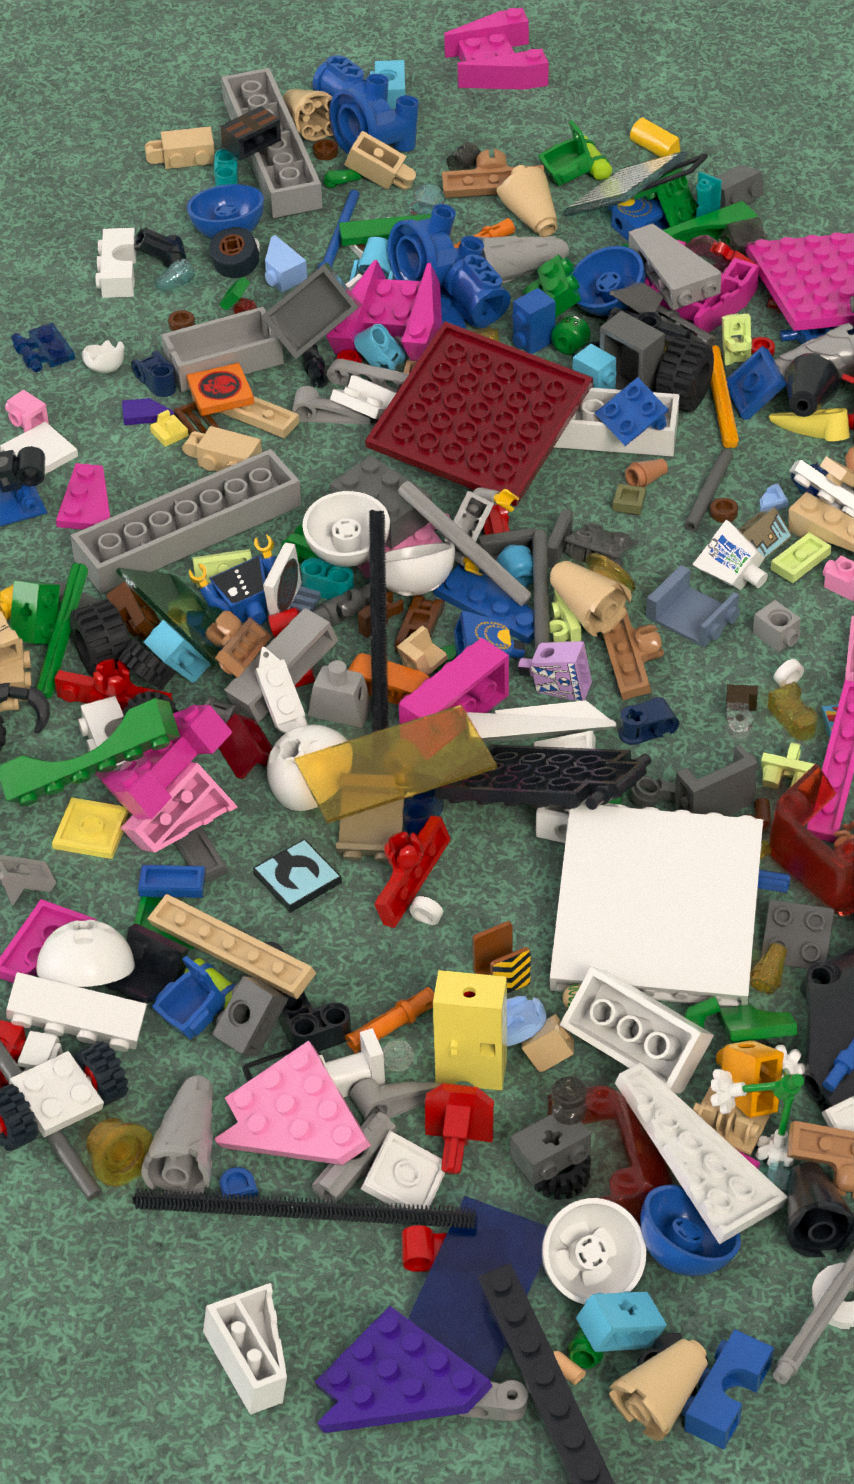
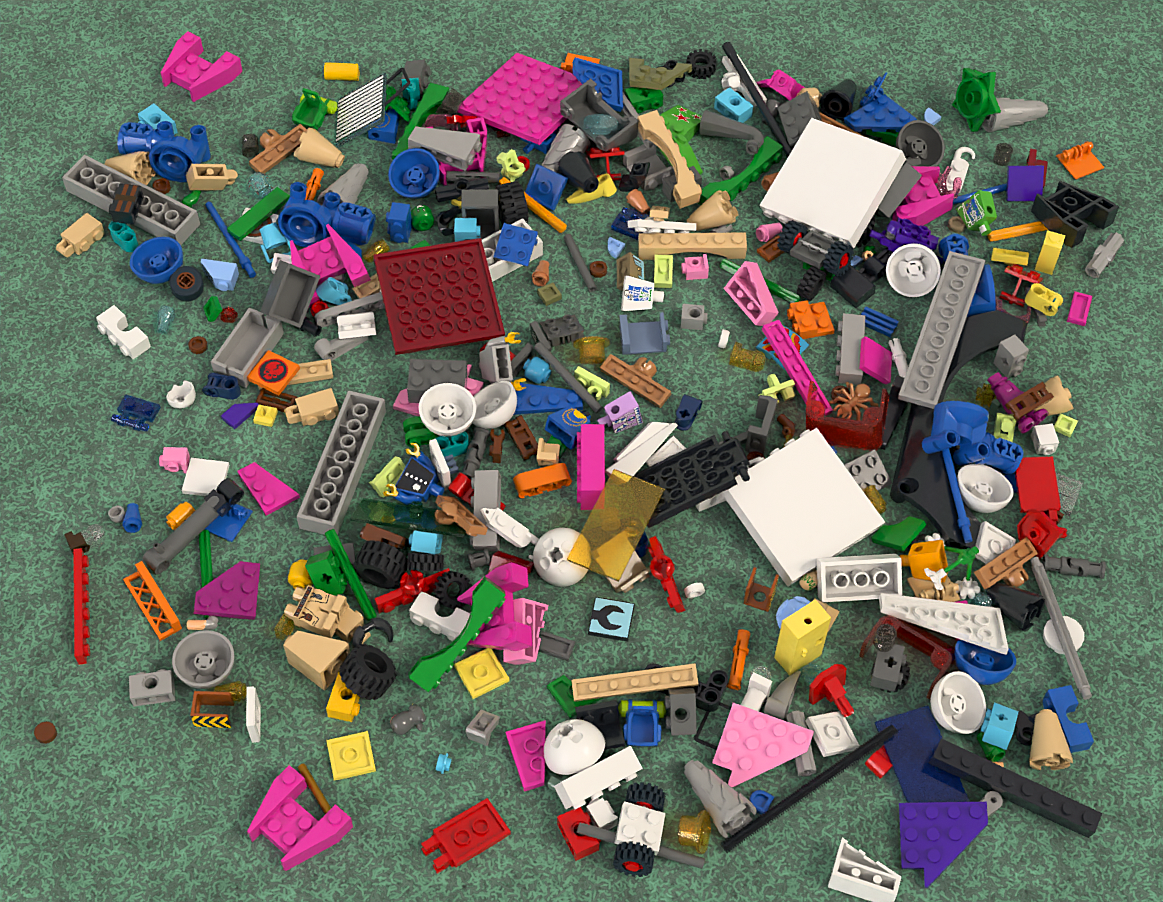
camera: 45 degrees left, 10 degrees up
(159, 246) = (141, 306): black piece -> none
(171, 880) = (559, 670): blue tile -> none
(340, 696) = (531, 506): light grey torso -> none
(378, 619) = (521, 456): black axle -> none
(464, 543) = (510, 376): light grey axle -> none
(558, 283) = (385, 193): green plate -> none
(590, 596) = (601, 363): tan cone -> none
(638, 297) = (445, 174): dark grey tile -> none
(698, 1012) = (867, 547): green arm -> none
(739, 719) = (722, 376): clear leg -> none

